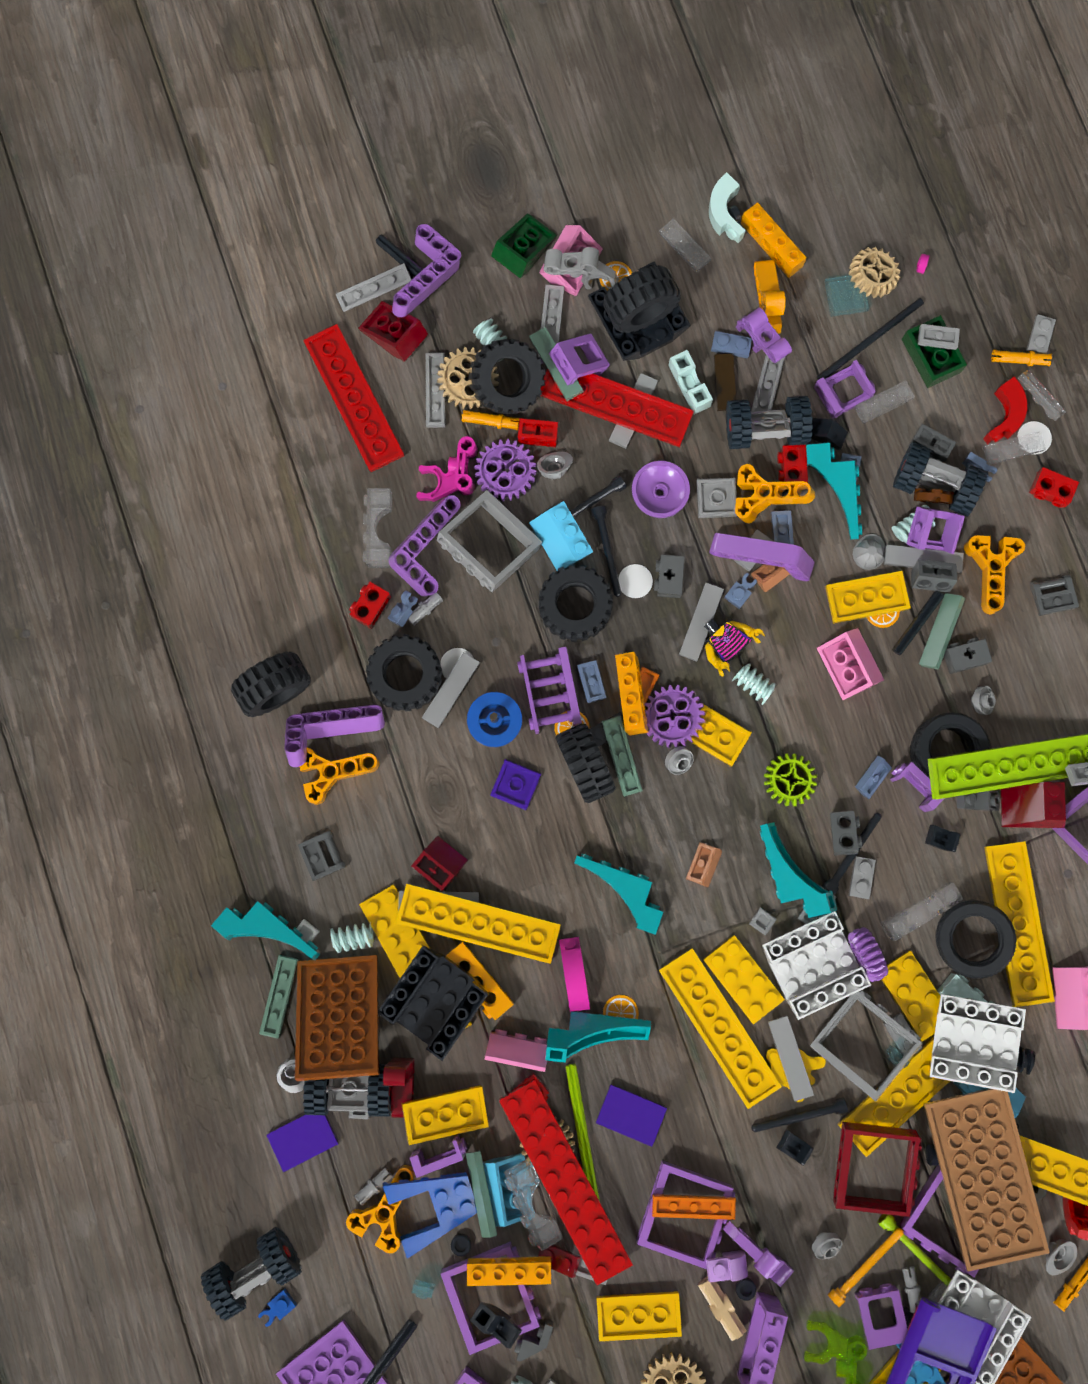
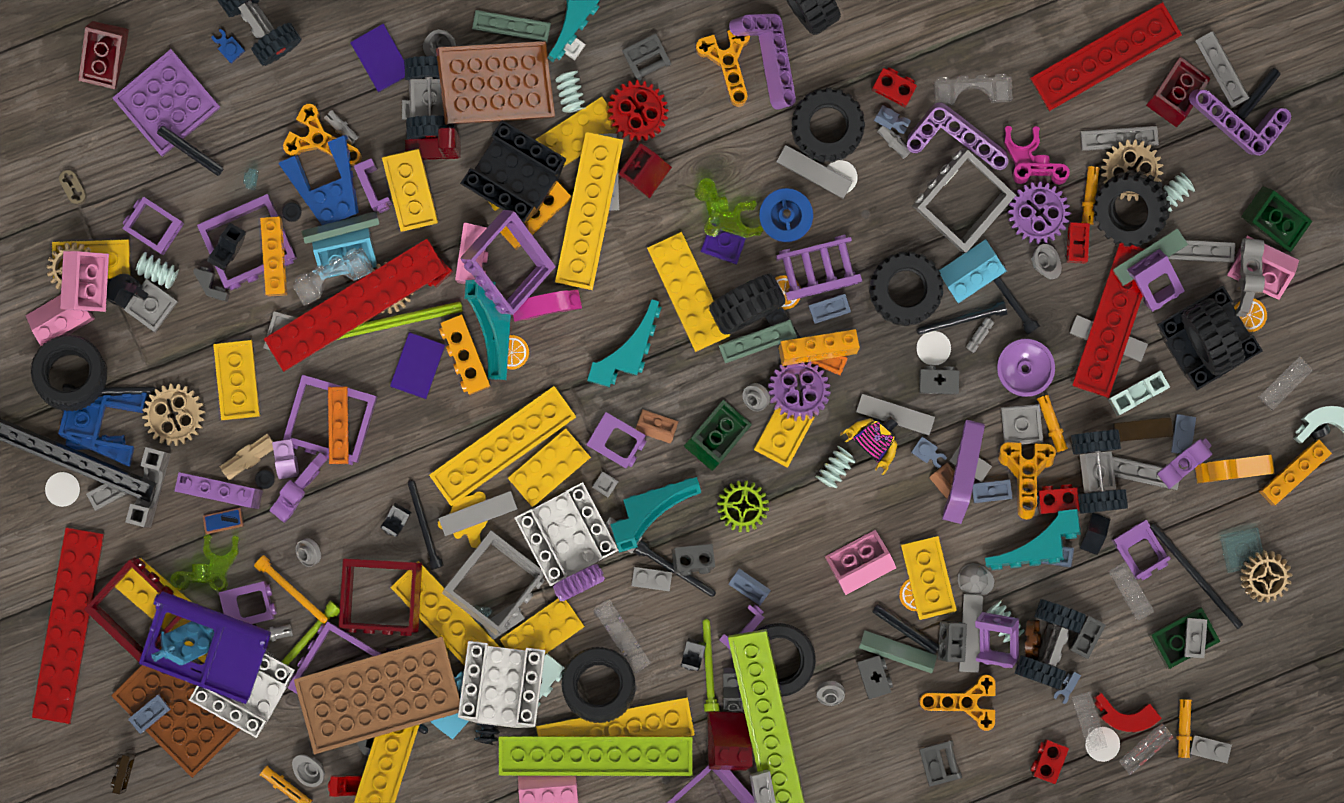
camera: 85 degrees right, 5 degrees up
(384, 883) = (652, 103): none -> red gear
(487, 788) = (719, 212): none -> clear neon green piece
(510, 989) = (529, 244): none -> medium lavender window
(562, 1260) = (283, 306): dark red plate -> none
(565, 826) = (686, 290): none -> yellow plate
(624, 534) = (980, 335): none -> light grey axle
(650, 1047) = (458, 325): none -> light orange brick
(711, 921) = (602, 433): none -> medium lavender window
(716, 468) = (1052, 423): none -> light orange pin
(717, 802) = (717, 435): none -> dark green slope
(792, 1344) = (223, 521): none -> slope
(922, 263) = (1279, 626): dark pink tile -> none
(993, 822) = (711, 702): none -> lime piece
(1048, 947) = (594, 756): none -> lime plate

